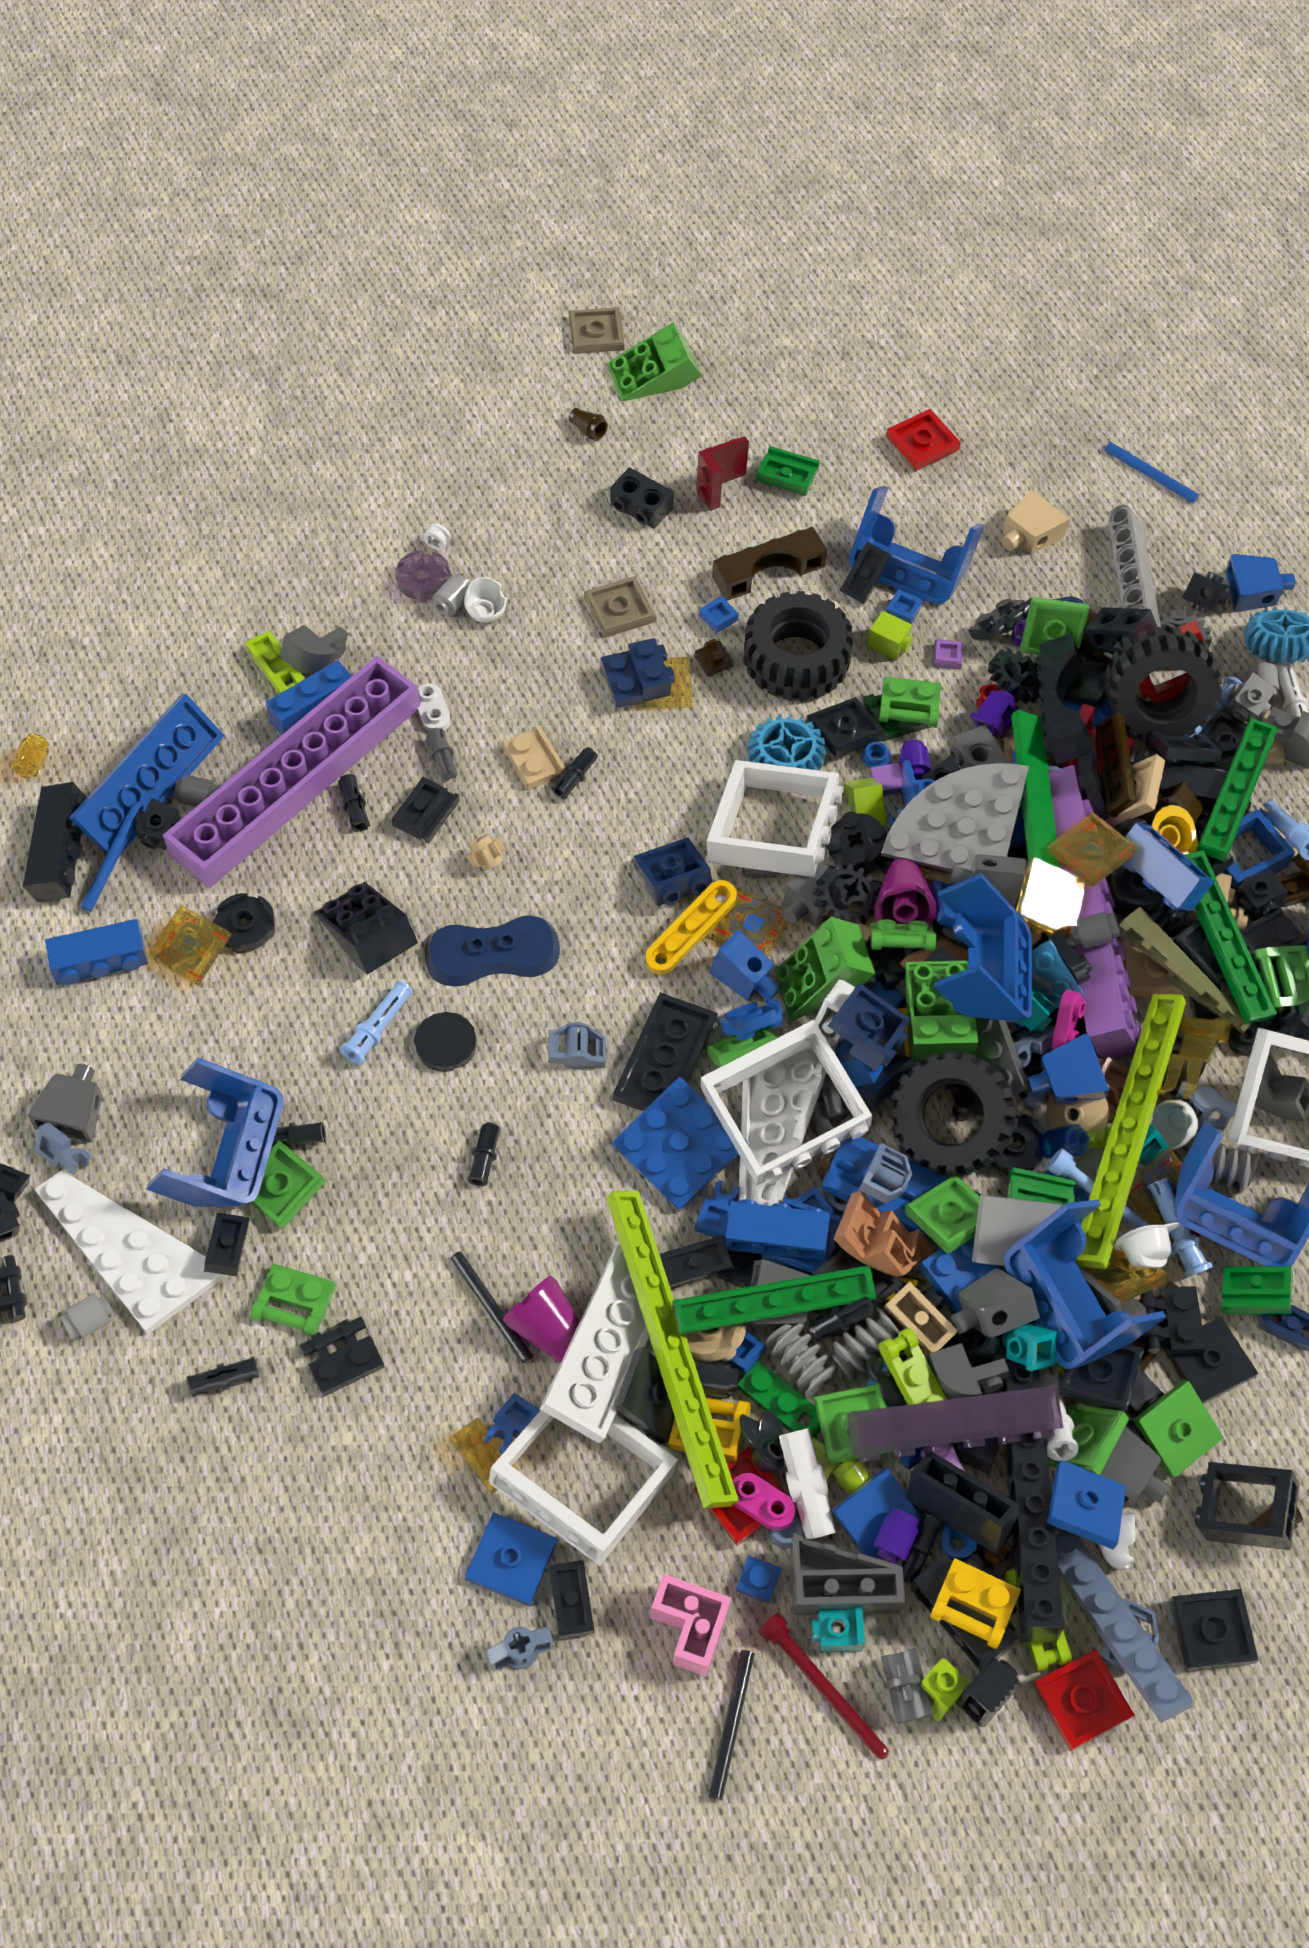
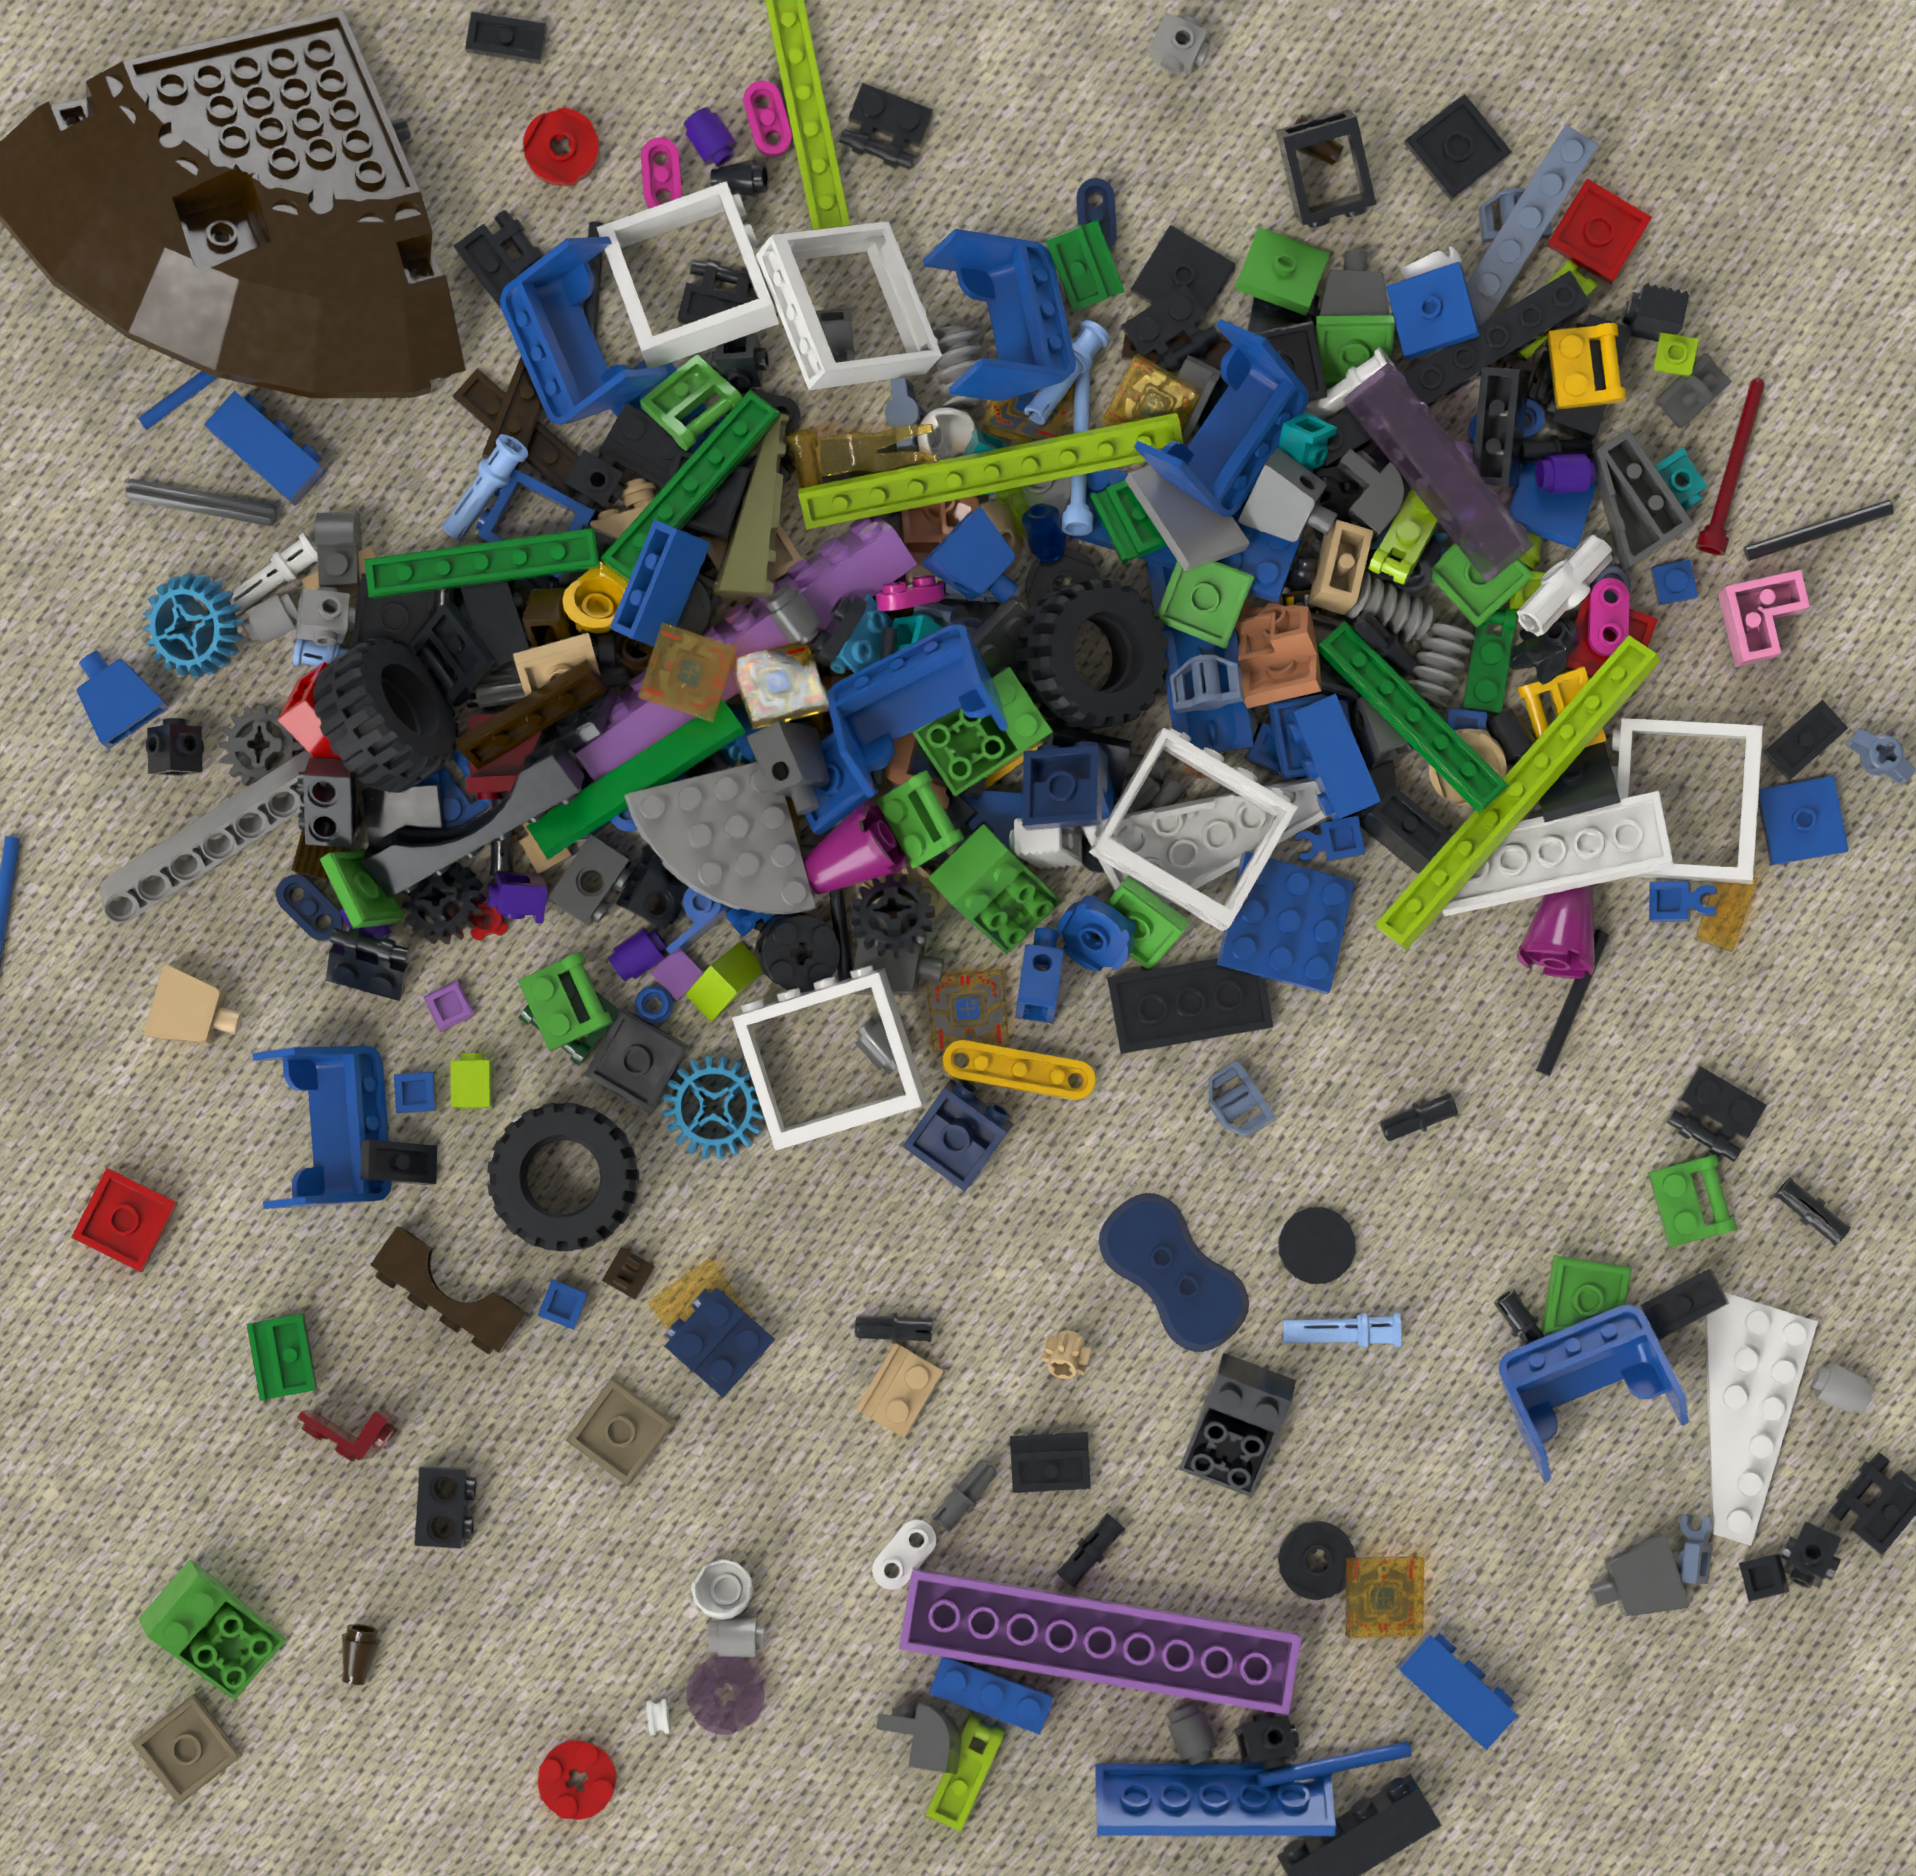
camera: 120 degrees left, 25 degrees up
(433, 473) = (585, 1758): none -> red plate
(1147, 1245) = (1120, 385): white piece -> none

